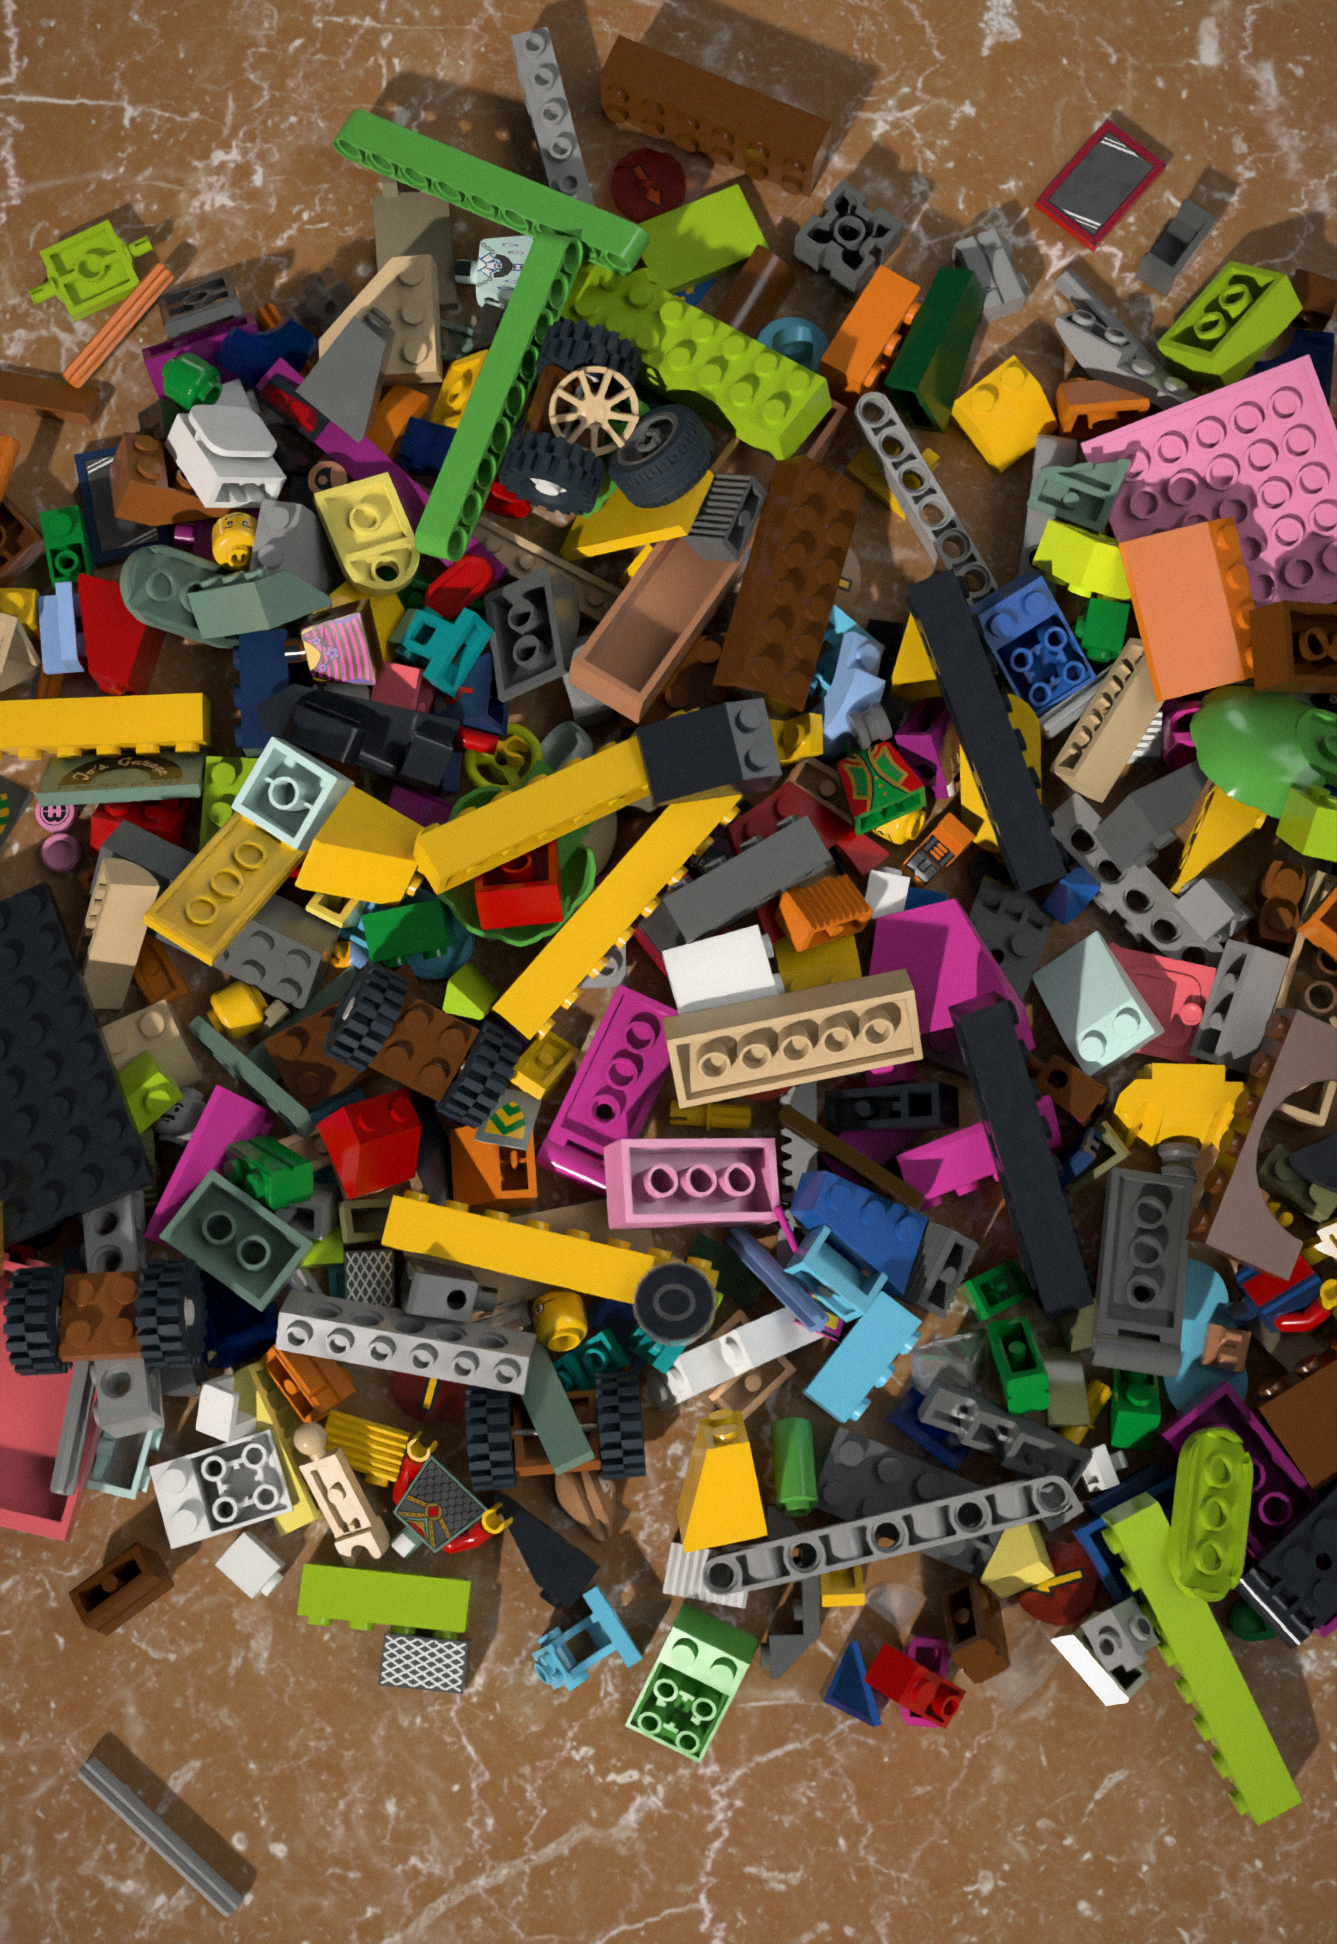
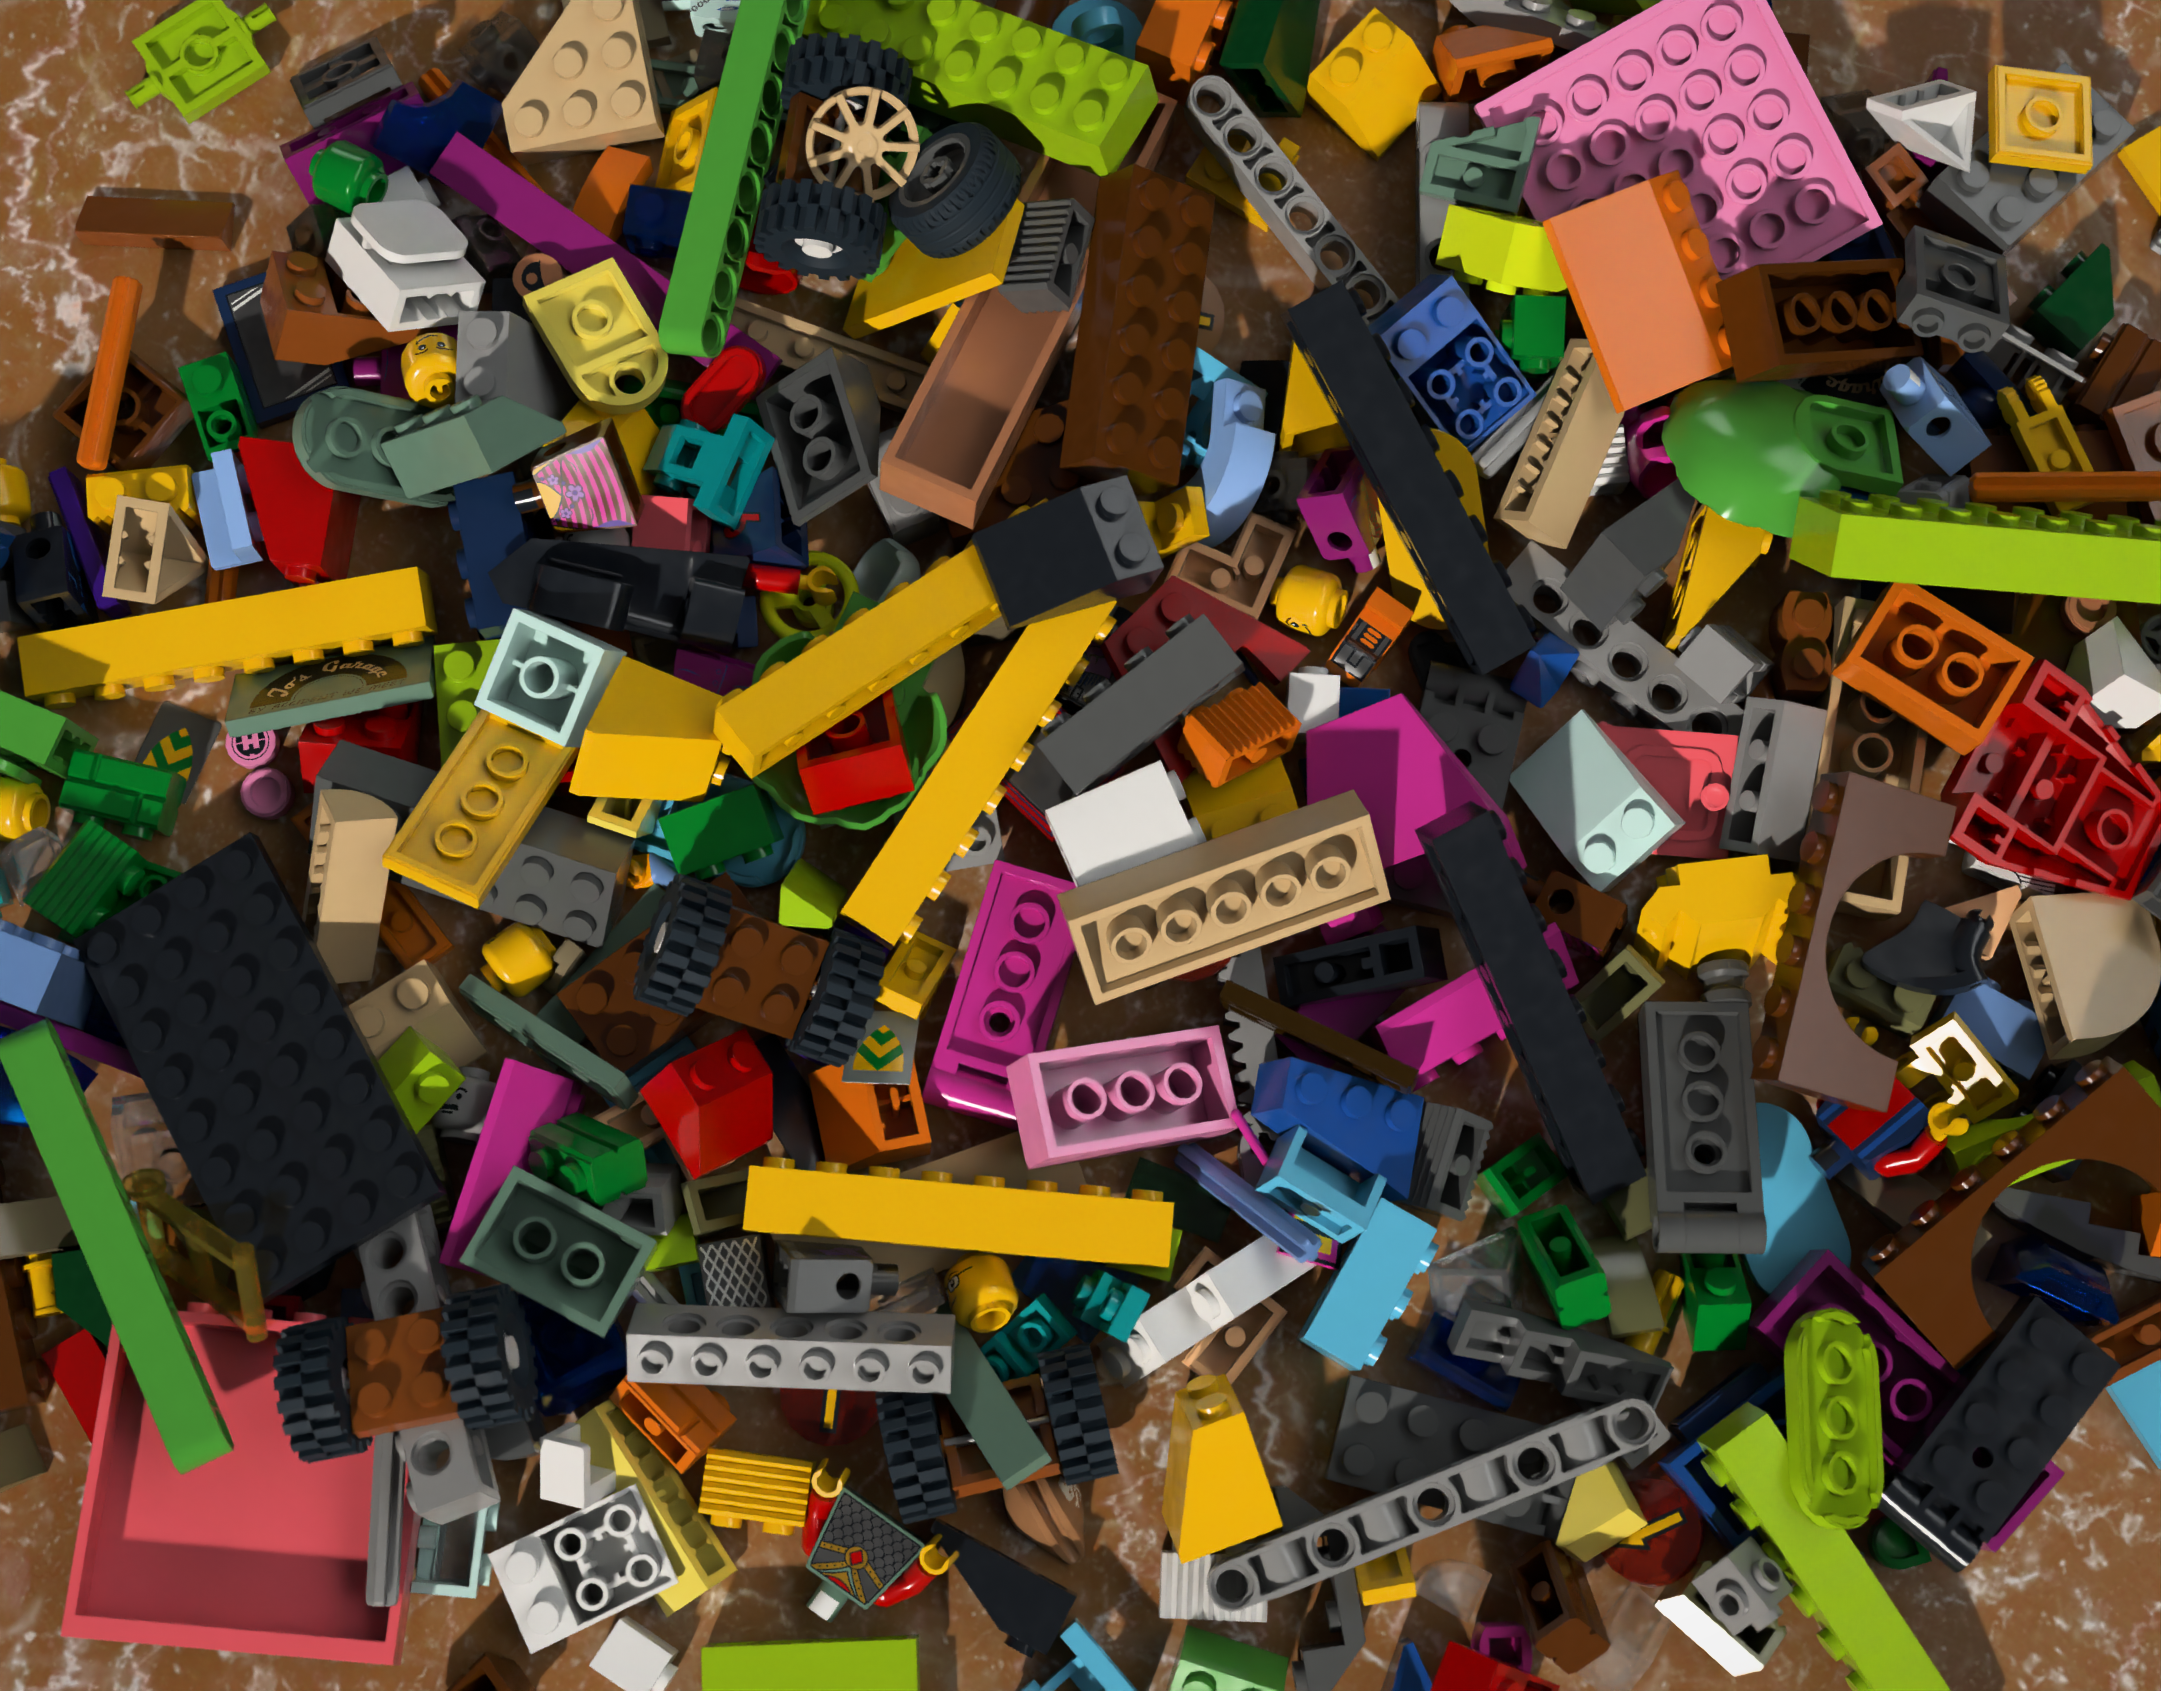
camera: 10 degrees left, 0 degrees up
(118, 325) = (245, 120): orange axle -> none
(293, 408) = (482, 192): sticker -> none
(340, 1496) = (735, 1555): tan plate -> none
(352, 373) = (550, 138): dark grey slope -> none
(674, 1303) = (1124, 1251): black tile -> none
(711, 1115) = (1134, 1008): yellow axle -> none
(794, 1466) = (1302, 1434): bright green brick -> none
(869, 725) = (1262, 492): dark grey wheel -> none
(878, 785) = (1283, 564): torso -> none
(1078, 1155) = (1602, 991): dark blue tile -> none
(1101, 1470) = (1686, 1382): white tile -> none
(1225, 1348) = (1817, 1207): nougat tile -> none

